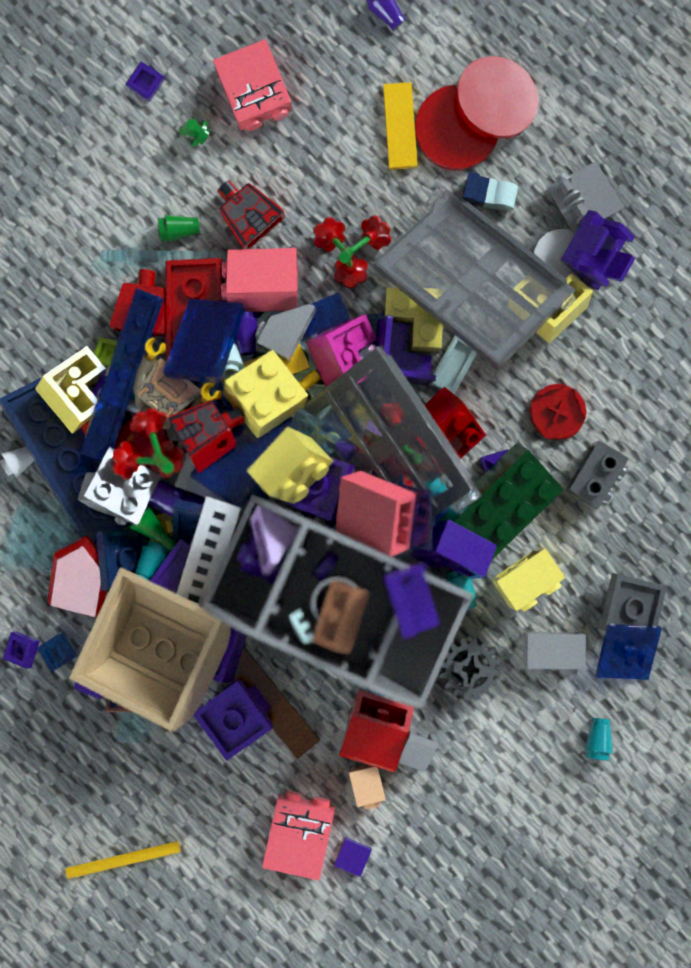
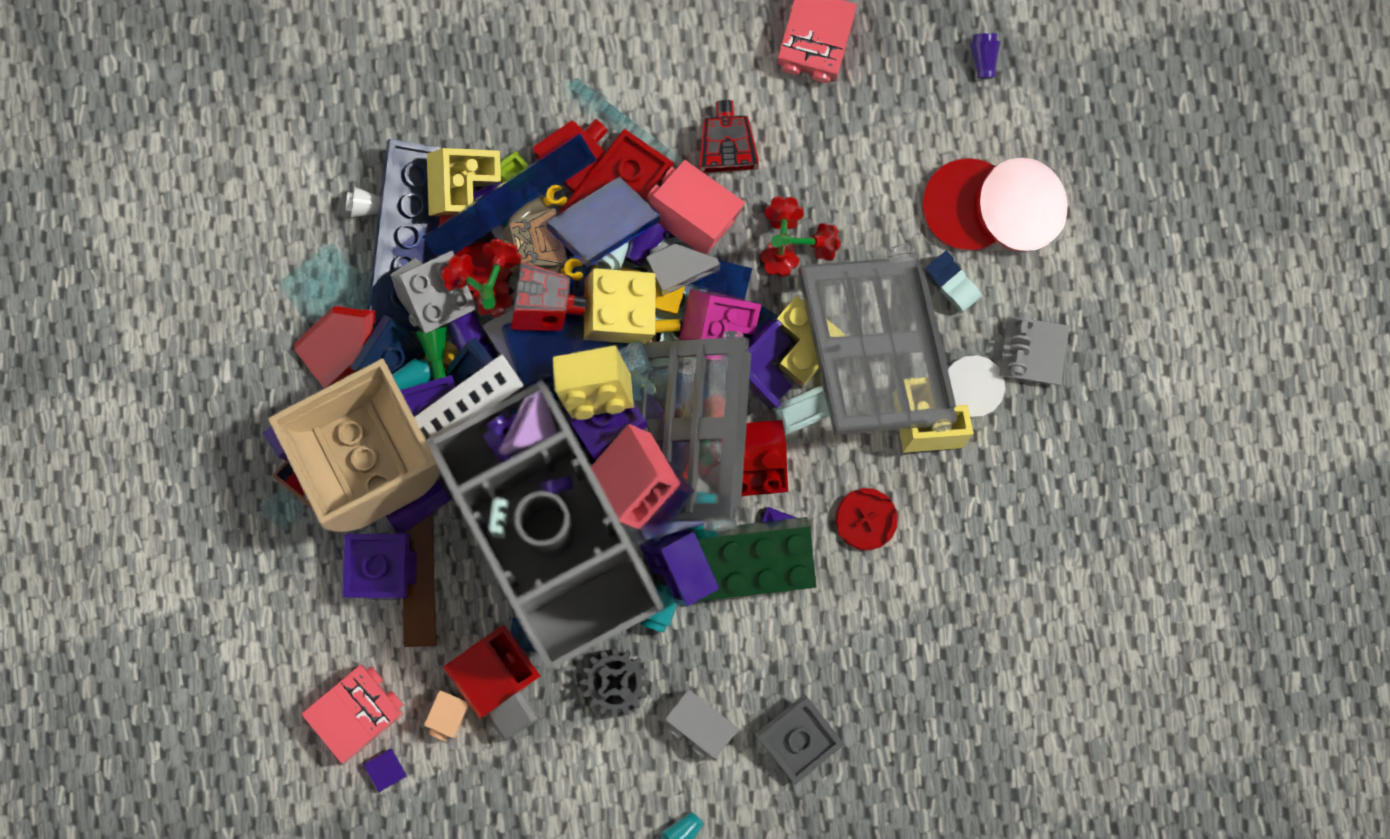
camera: 35 degrees right, 5 degrees down
(21, 649) = (239, 368): dark purple tile -> none
(57, 652) = (268, 394): clear blue tile -> none
(122, 860) = (184, 618): yellow bar -> none
(177, 227) = (656, 107): green cone -> none
(197, 131) = (738, 39): green plate -> none
(340, 616) = (536, 530): nougat slope -> none
(400, 126) = (919, 165): yellow tile -> none
(411, 599) = (604, 557): dark purple panel -> none
(528, 579) = (725, 641): light yellow brick -> none
(596, 251) = (1006, 404): dark purple panel -> none
(598, 474) = (858, 600): dark grey brick -> none
(628, 651) = (765, 774): clear blue piece -> none

